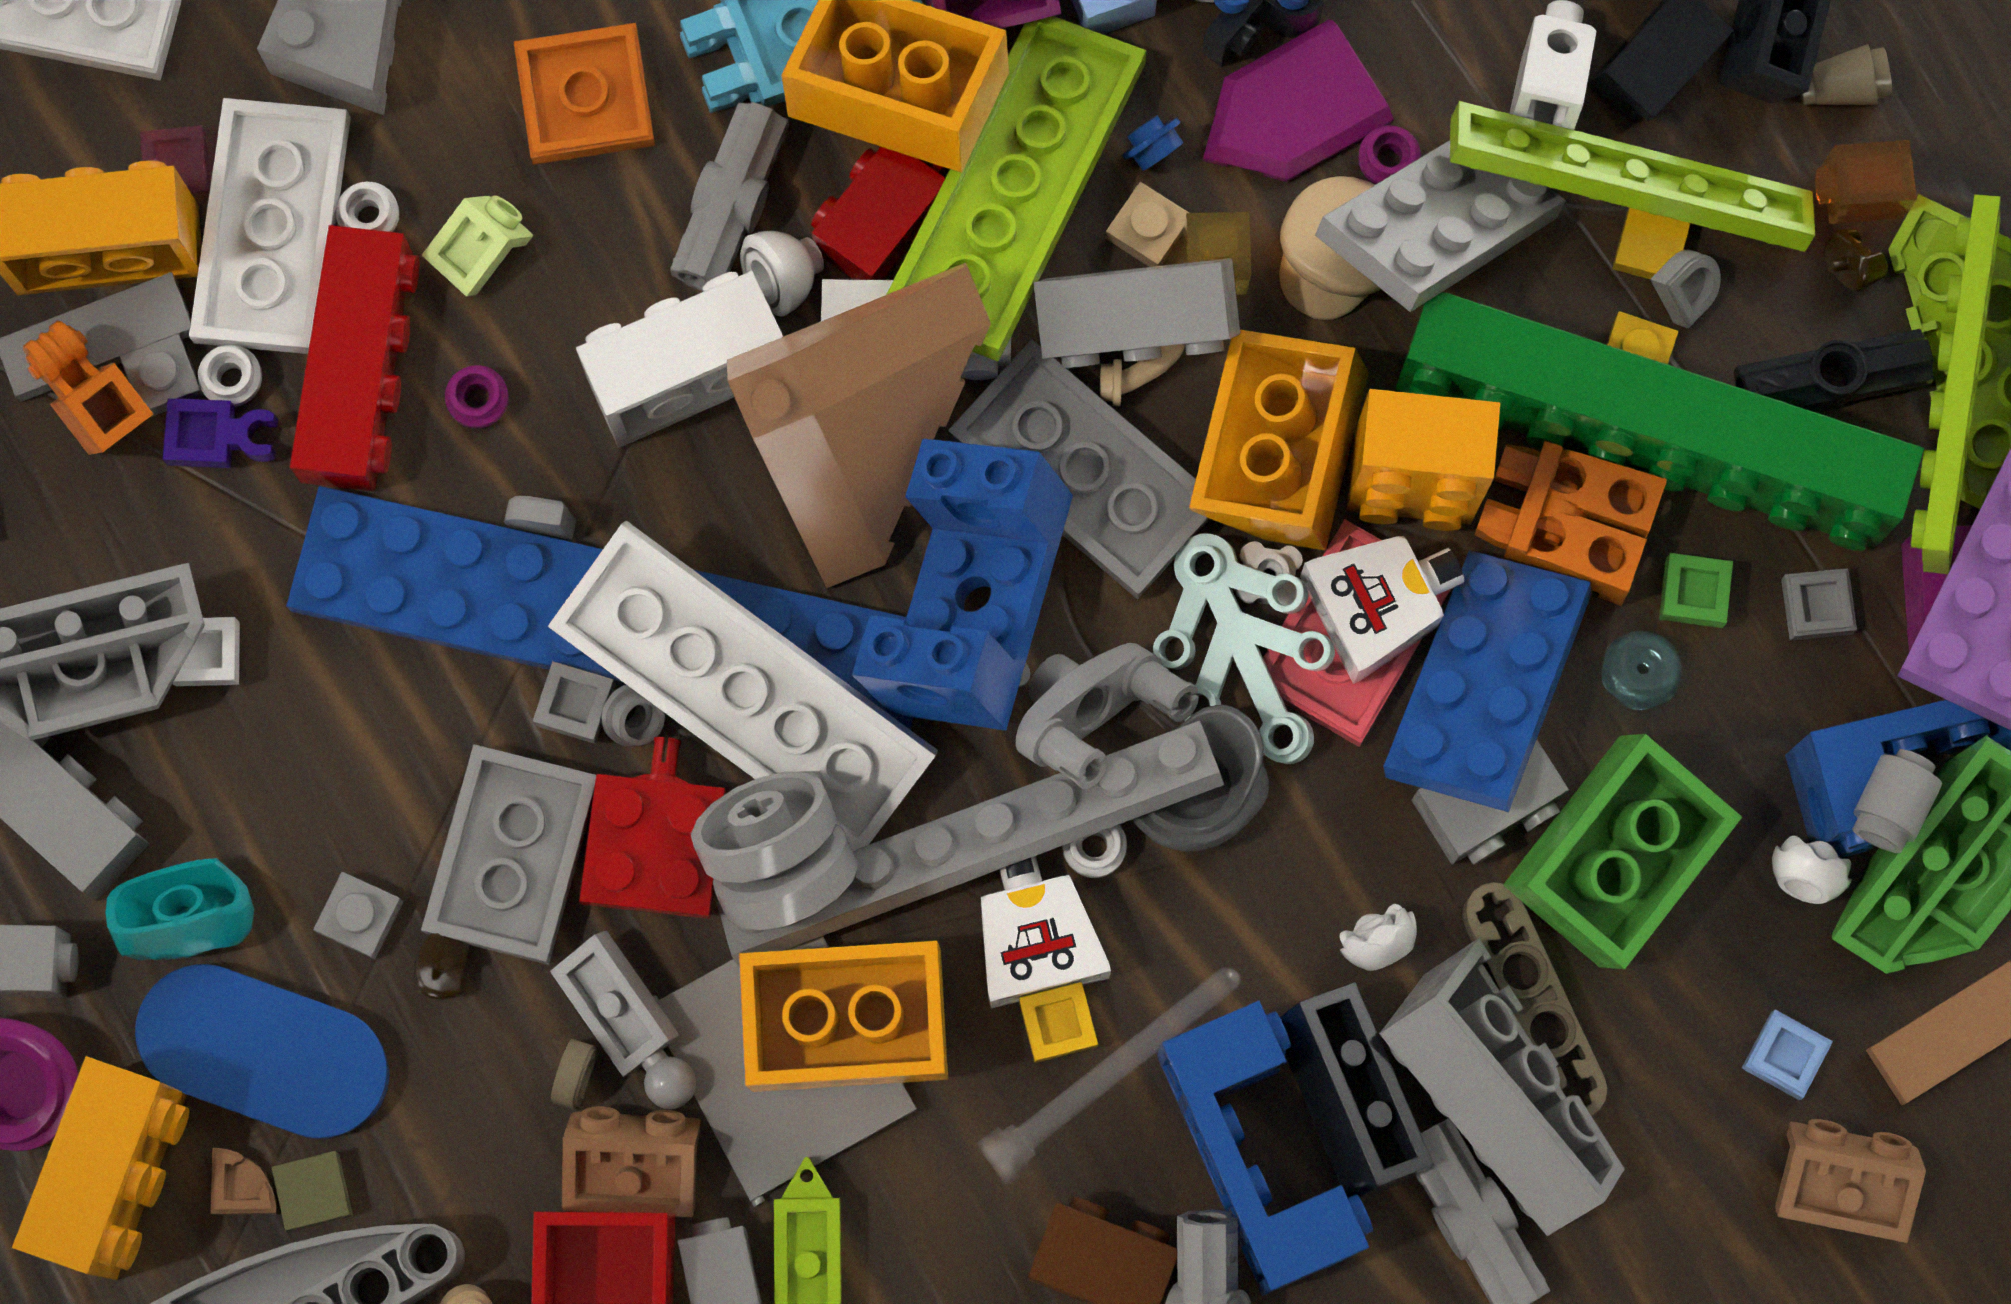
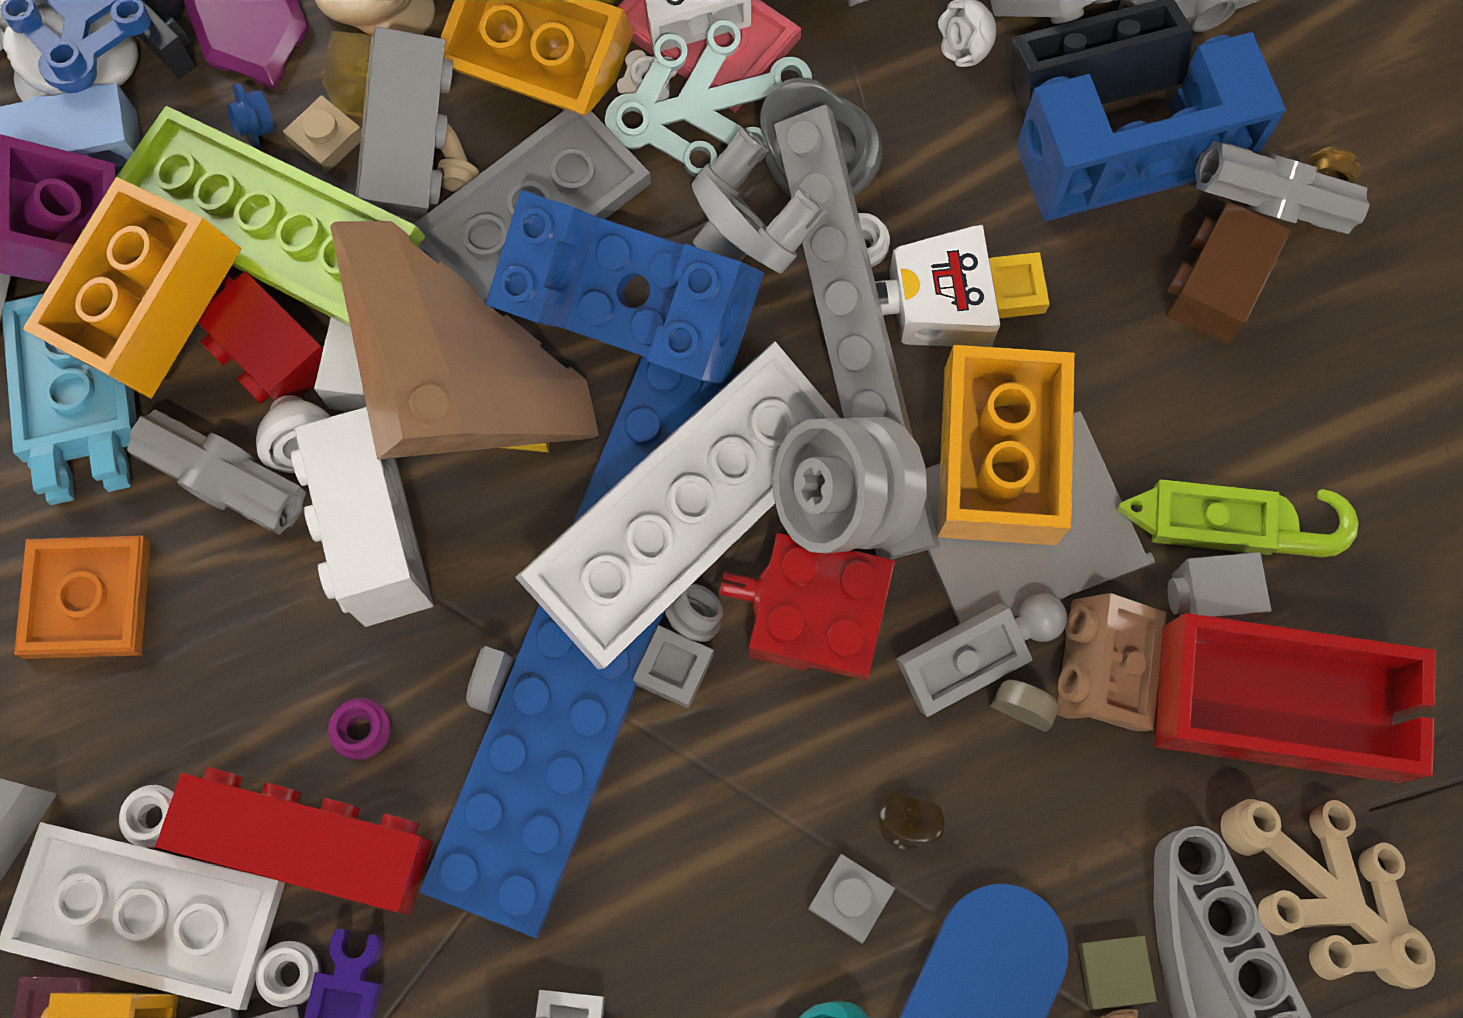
camera: 80 degrees left, 5 degrees down
(476, 241) = (206, 711): yellowish green bracket -> none
(510, 854) = (811, 742): light grey plate -> none
(1013, 1147) = (1121, 336): clear piece -> none

